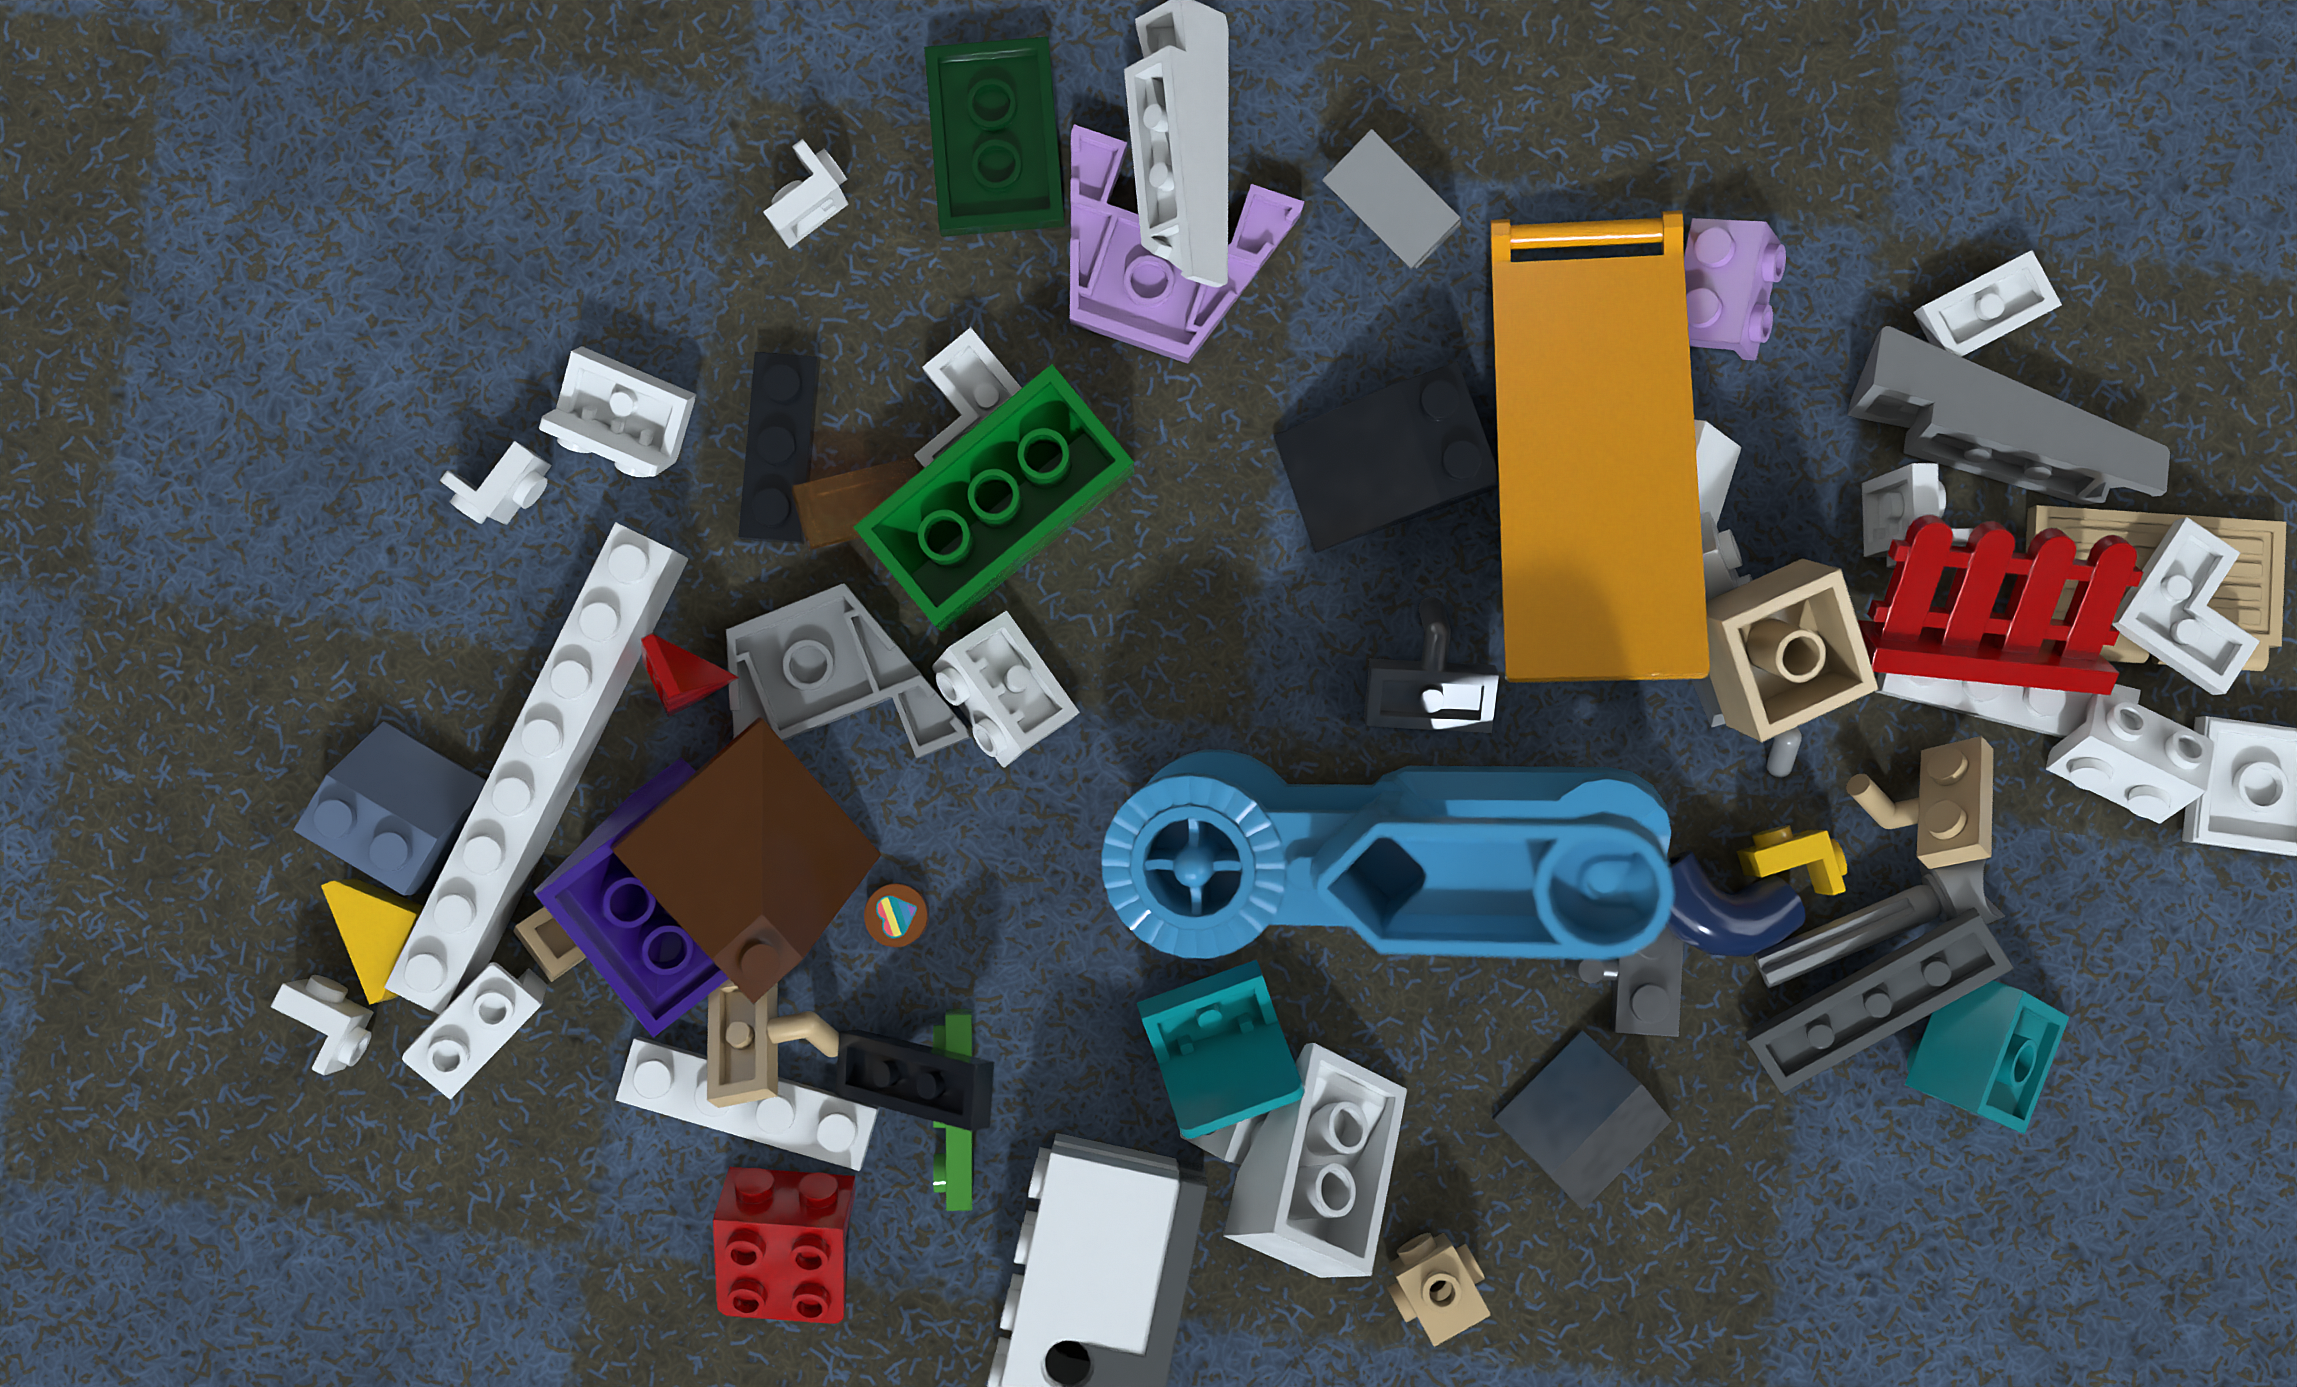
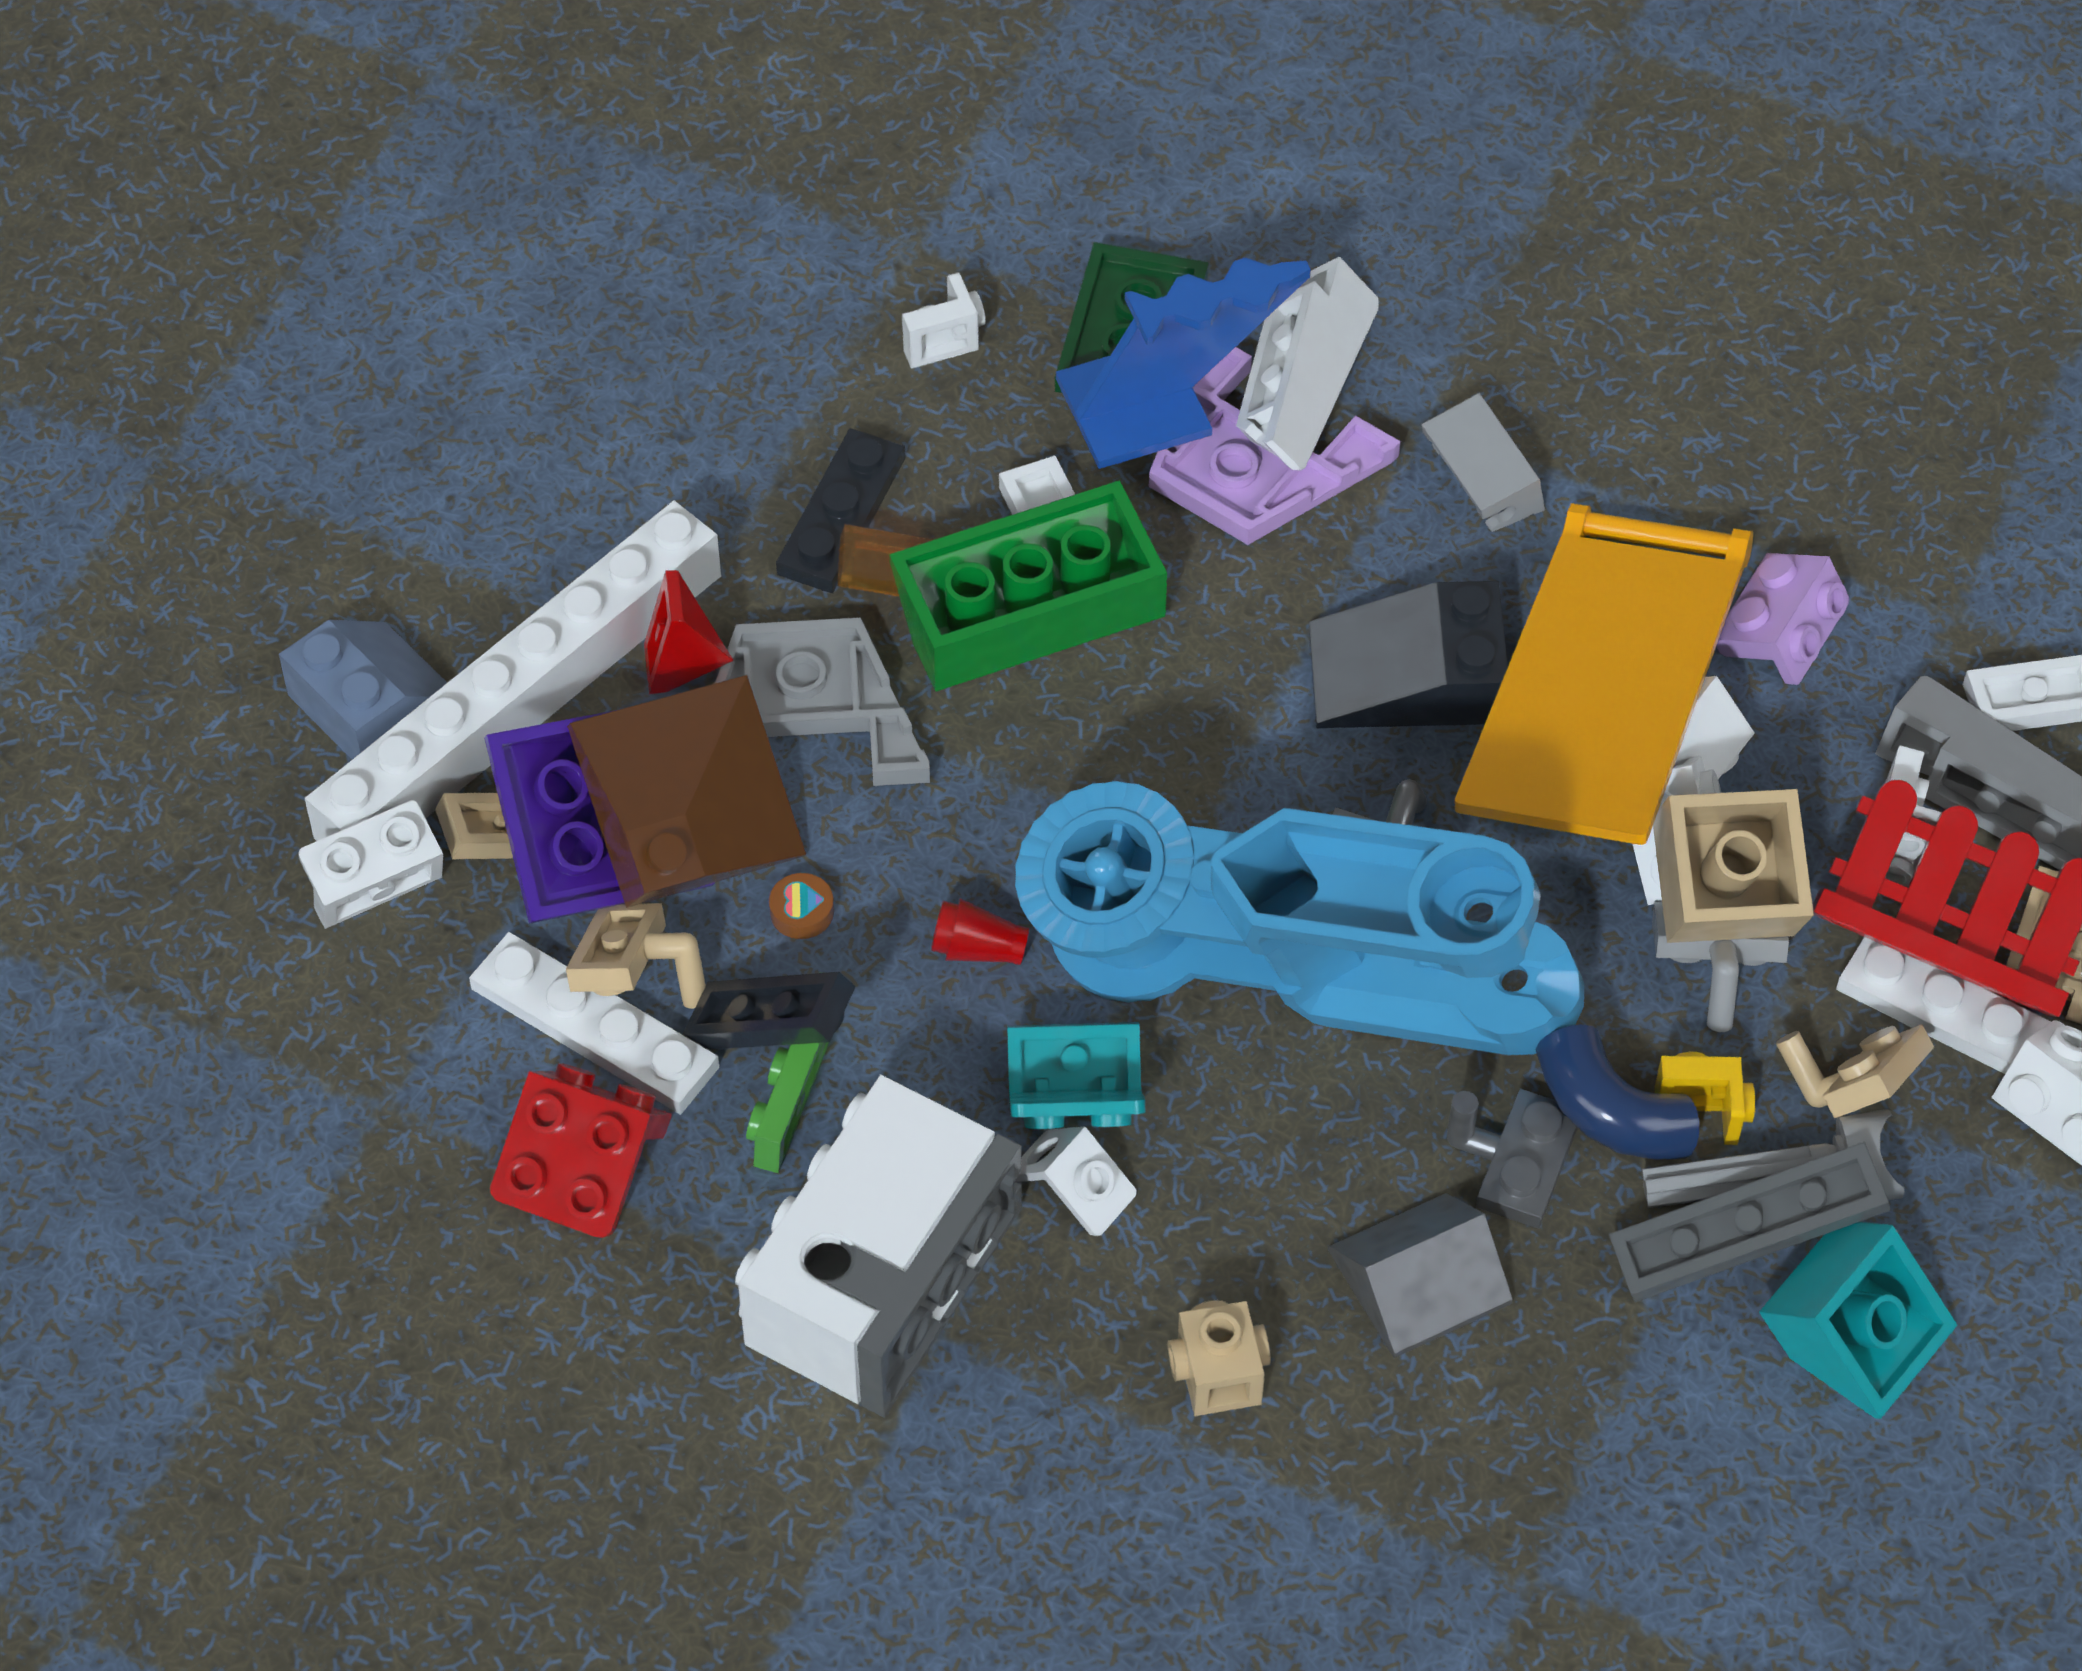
camera: 20 degrees right, 30 degrees down
(324, 1007) = (235, 827): white bracket -> none
(373, 929) = (307, 762): yellow slope -> none
(512, 484) = (579, 467): white bracket -> none
(619, 414) = (712, 437): white bracket -> none
(1003, 689) = (975, 745): white bracket -> none
(1032, 238) = (1144, 391): none -> blue piece
(1068, 902) = (977, 935): none -> red cone
(1321, 1170) = (1136, 1211): white slope -> none

